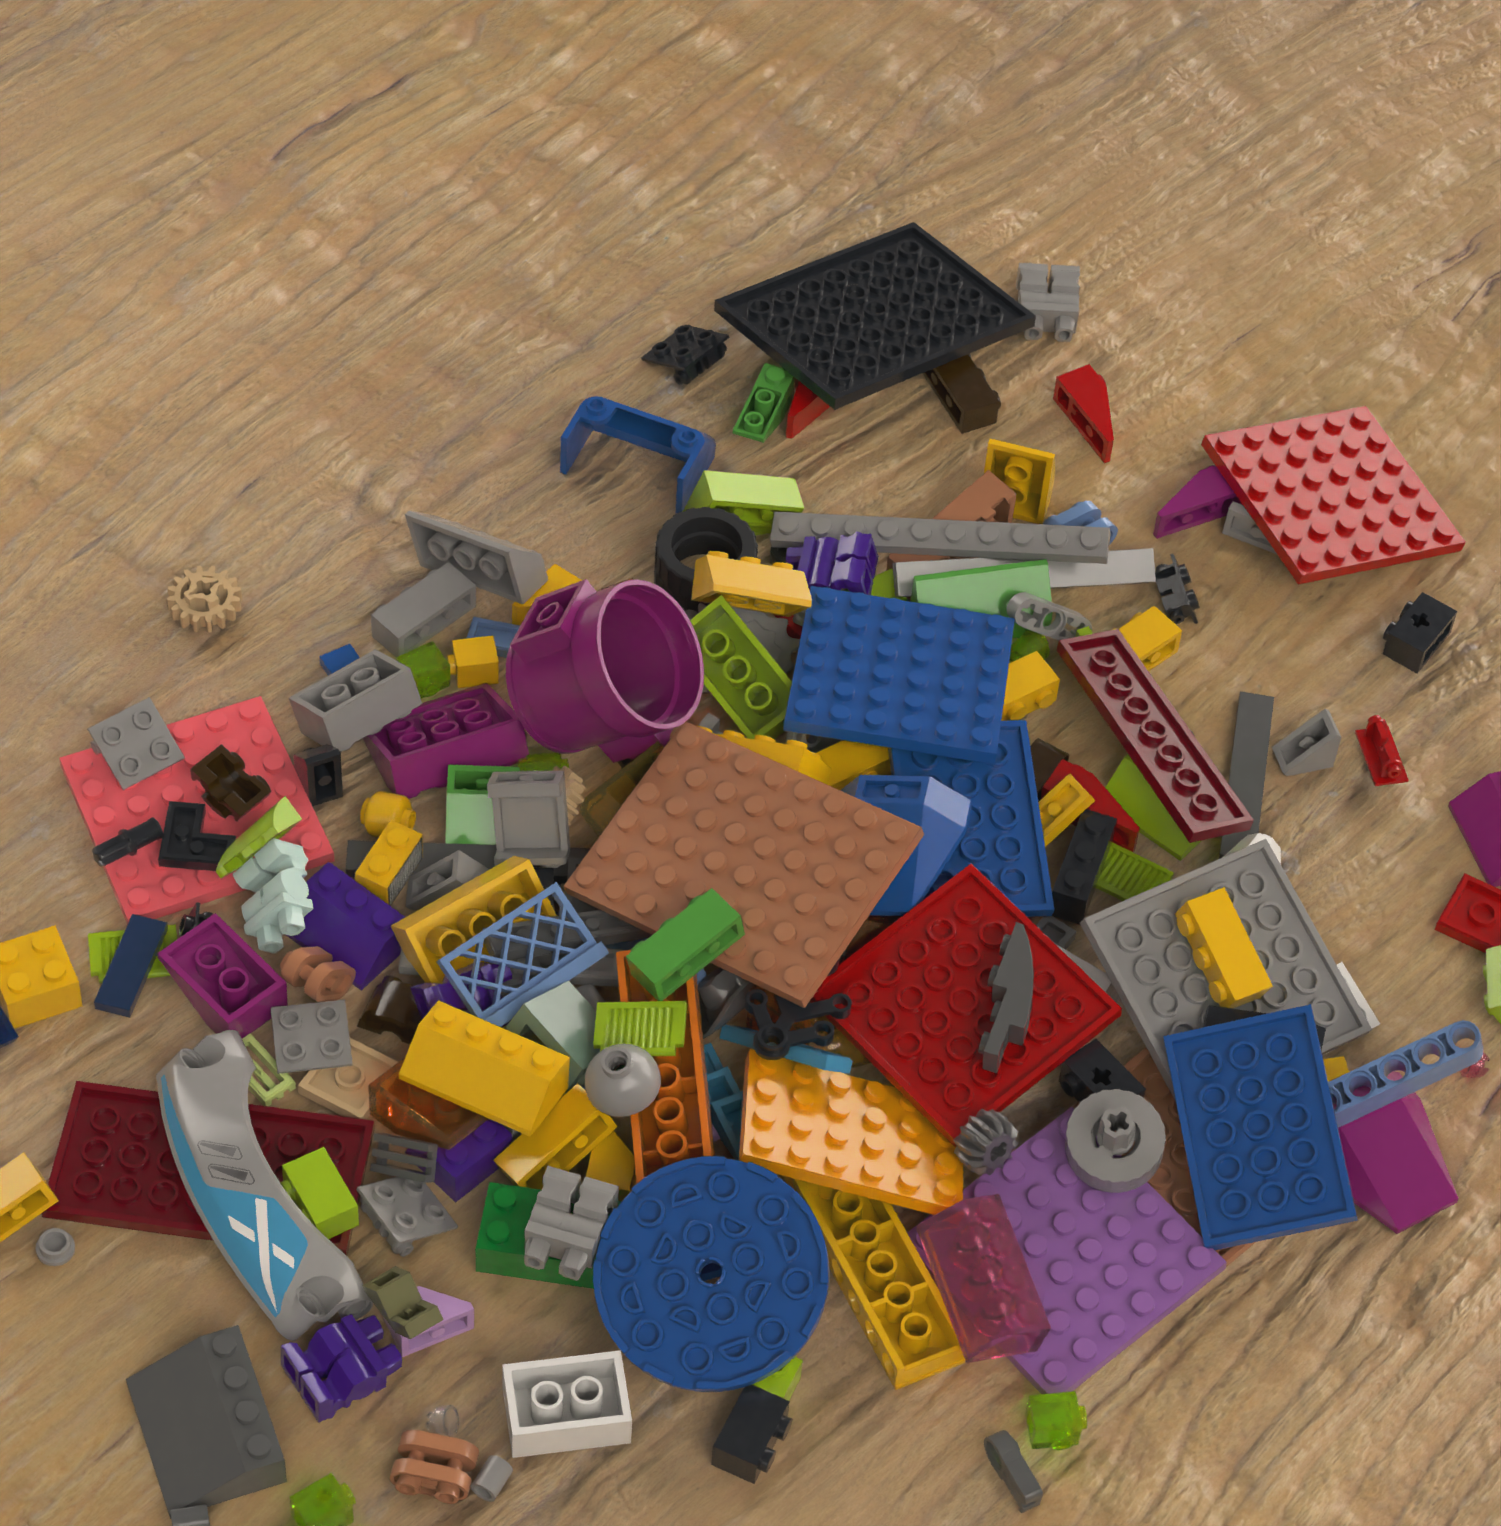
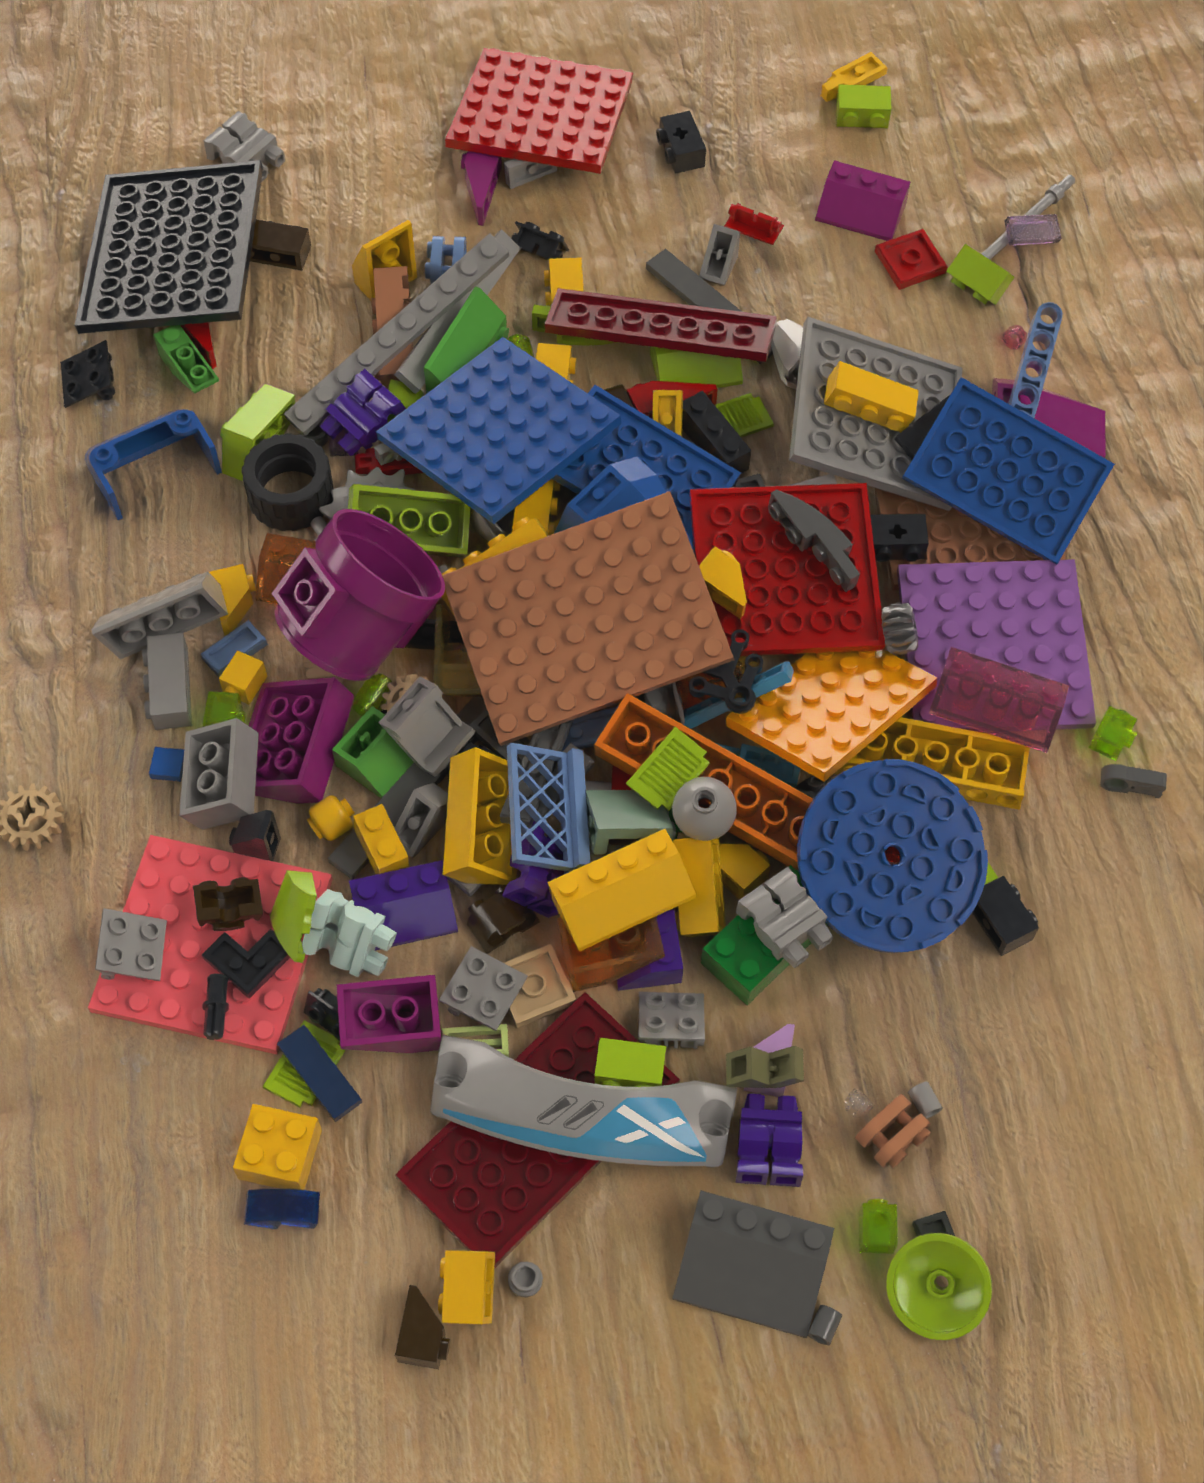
camera: 50 degrees left, 10 degrees up
(317, 972) = (427, 952): nougat brick -> none
(382, 1154) = (617, 1005): dark grey tile -> none
(566, 1404) = (907, 1014): white brick -> none
(685, 944) = (634, 696): bright green brick -> none
(751, 584) = (348, 464): yellow slope -> none
(890, 948) = (724, 581): none -> yellow slope
(1041, 609) = (510, 321): light grey beam -> none
(1085, 402) = (353, 187): red slope -> none
(1101, 1116) = (966, 548): light grey piece -> none

